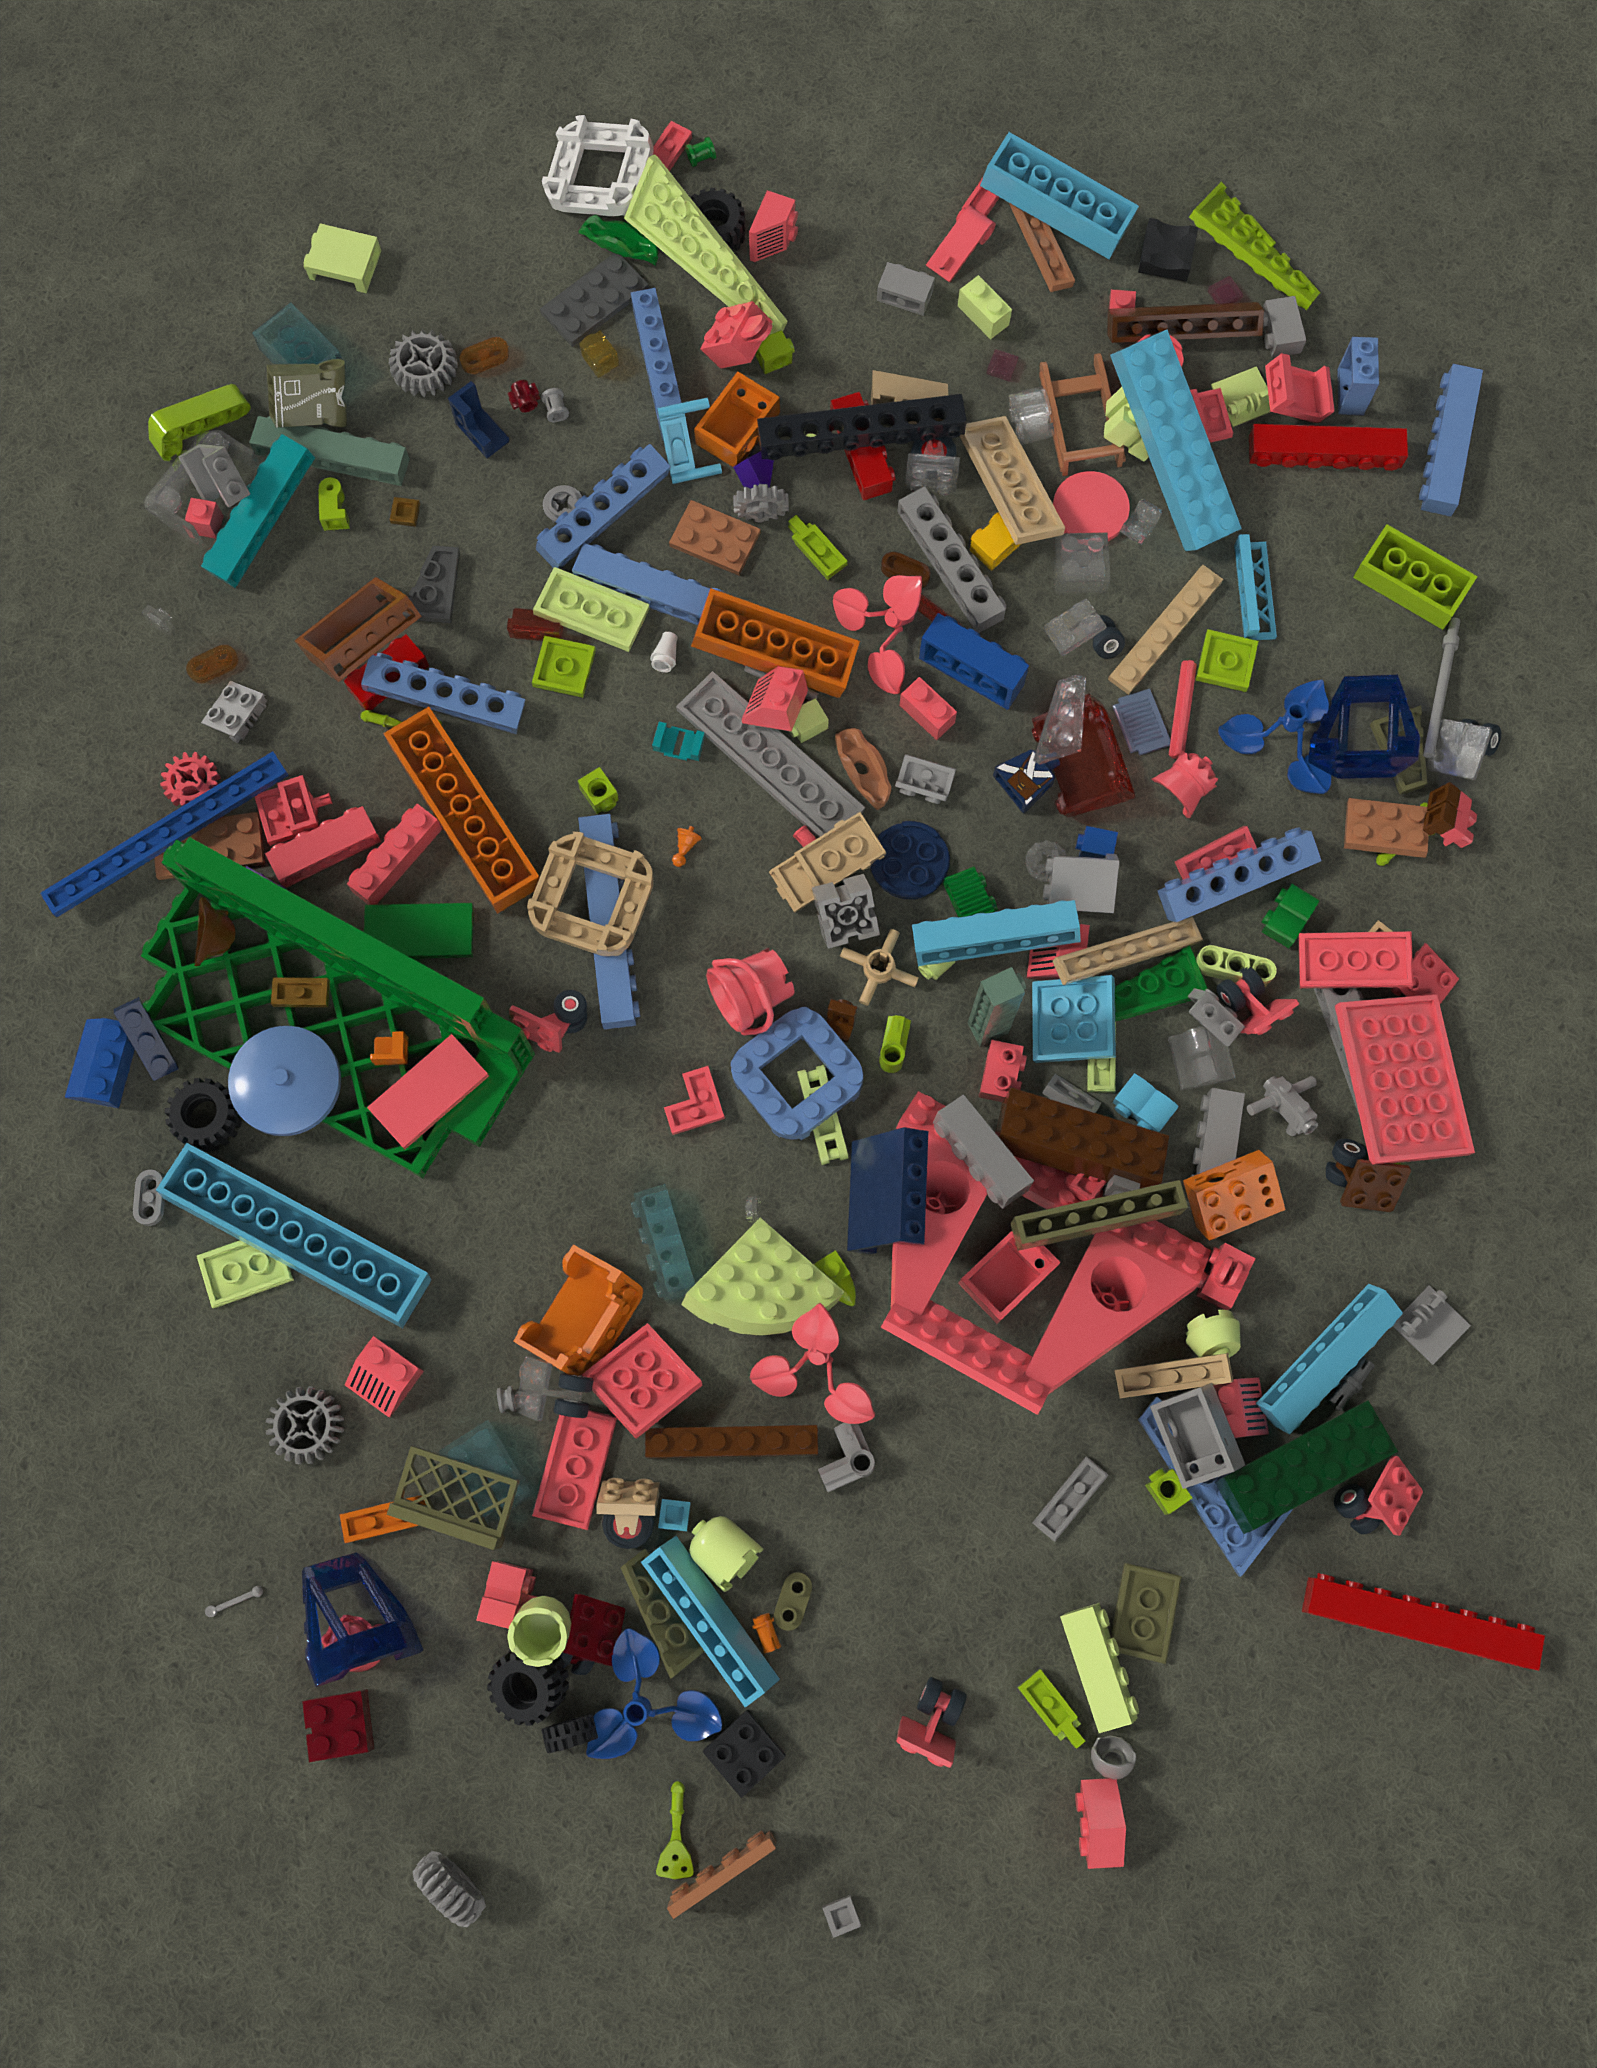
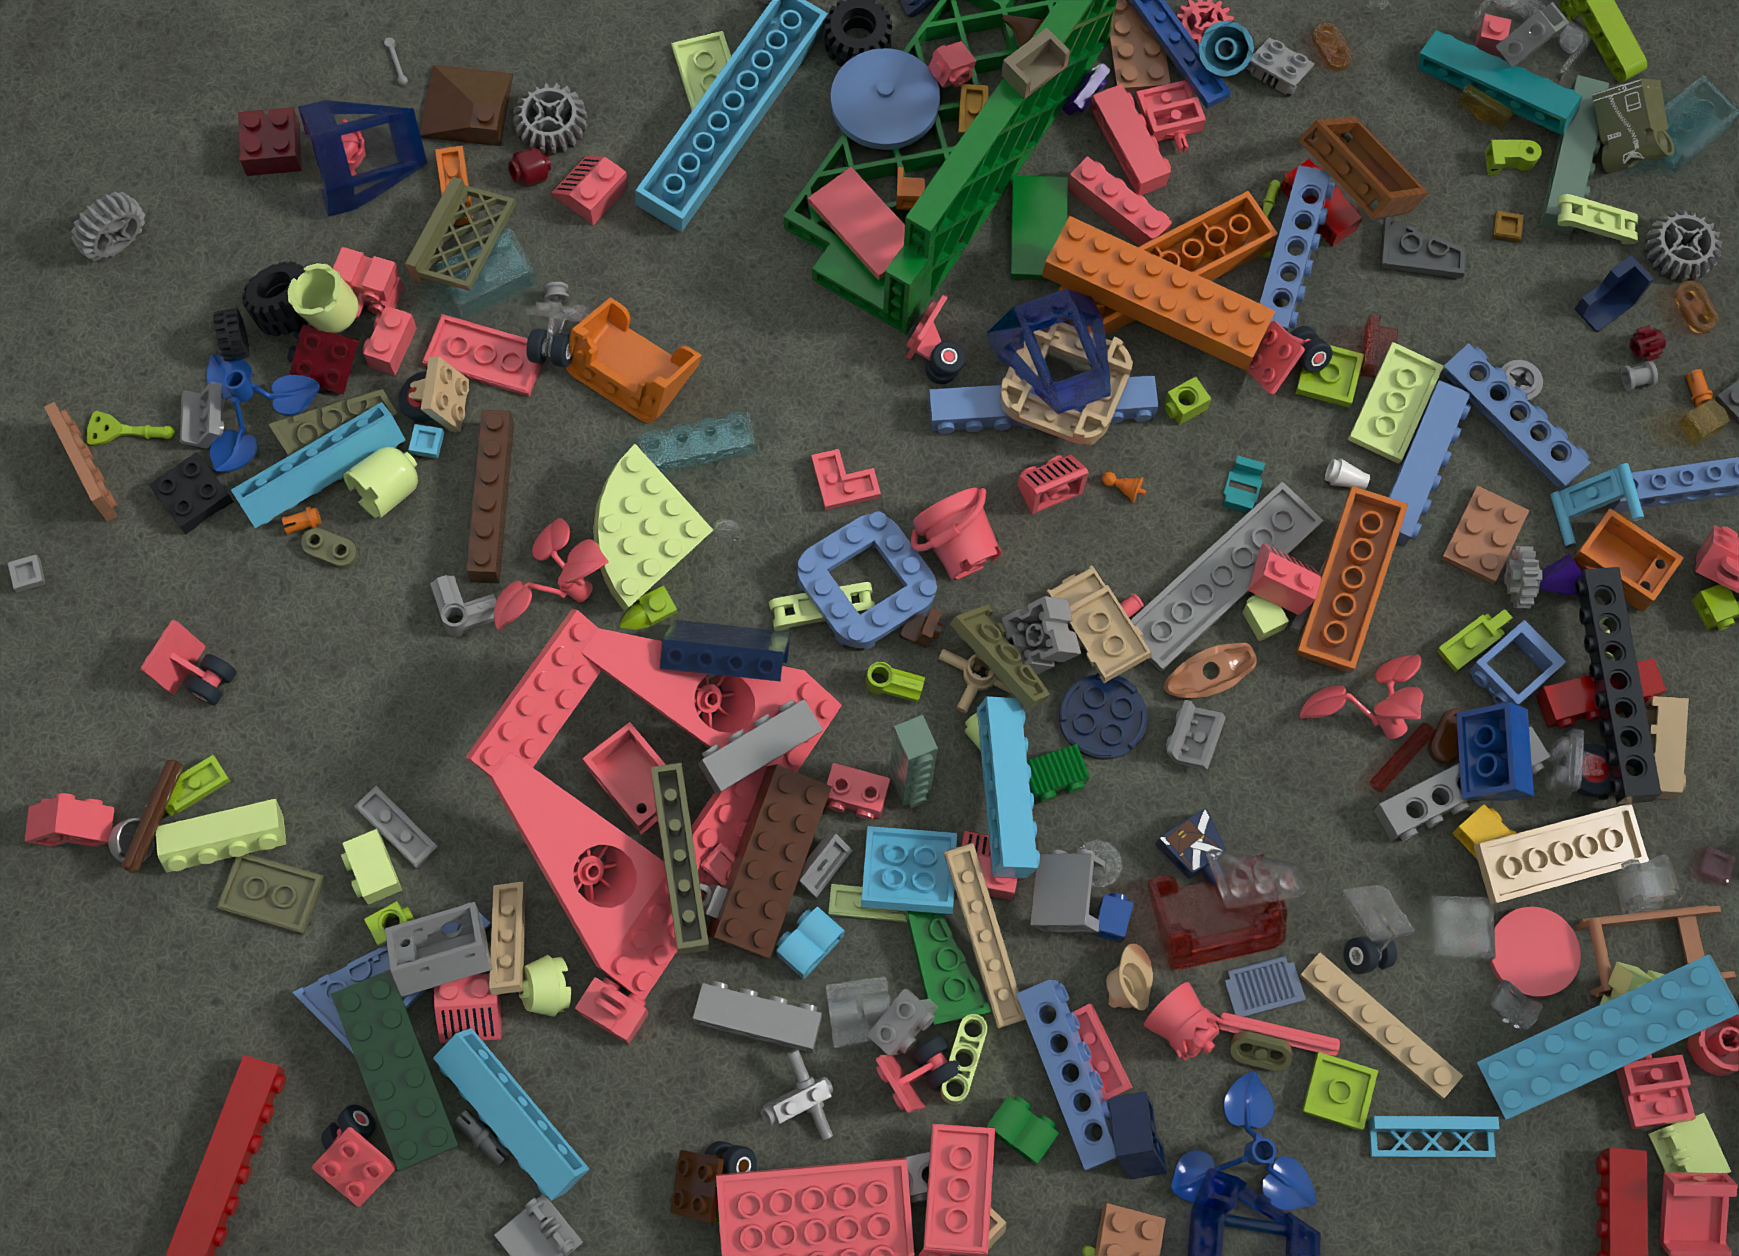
camera: 90 degrees right, 5 degrees down
(234, 749) = (1218, 45): none -> medium azure cone
(249, 1013) = (952, 64): none -> coral brick
(281, 526) = (1484, 107): none -> clear yellow plate
(286, 1518) = (466, 105): none -> reddish brown slope
(298, 902) = (1035, 63): none -> dark tan panel
(363, 1441) = (529, 167): none -> dark red head
(402, 431) = (1598, 218): none -> yellowish green plate
(501, 811) = (1158, 293): none -> orange brick
(538, 927) = (1024, 319): none -> clear blue windscreen
(551, 703) = (1282, 350): none -> coral plate
(564, 357) = (1698, 387): none -> orange pin
(566, 1564) = (389, 340): none -> coral brick
(642, 1380) = (558, 412): coral plate -> none
(660, 1752) = (202, 416): none -> light grey bracket
(689, 908) = (1052, 483): none -> coral slope
(828, 492) = (1534, 647): none -> medium blue window
(871, 944) = (1003, 659): none -> olive wing
(928, 708) = (1278, 743): coral brick -> none
(930, 527) = (1495, 753): none -> blue slope
(973, 660) = (1335, 791): blue brick -> none
(1089, 1737) = (152, 816): none -> reddish brown axle
(1114, 1516) = (371, 867): none -> yellowish green brick
(1152, 829) = (1132, 980): none -> tan piece
(1200, 722) = (1260, 1050): none -> olive plate
(1243, 1196) = (694, 1029): orange piece -> none
(1286, 819) = (1136, 1137): none -> dark blue panel

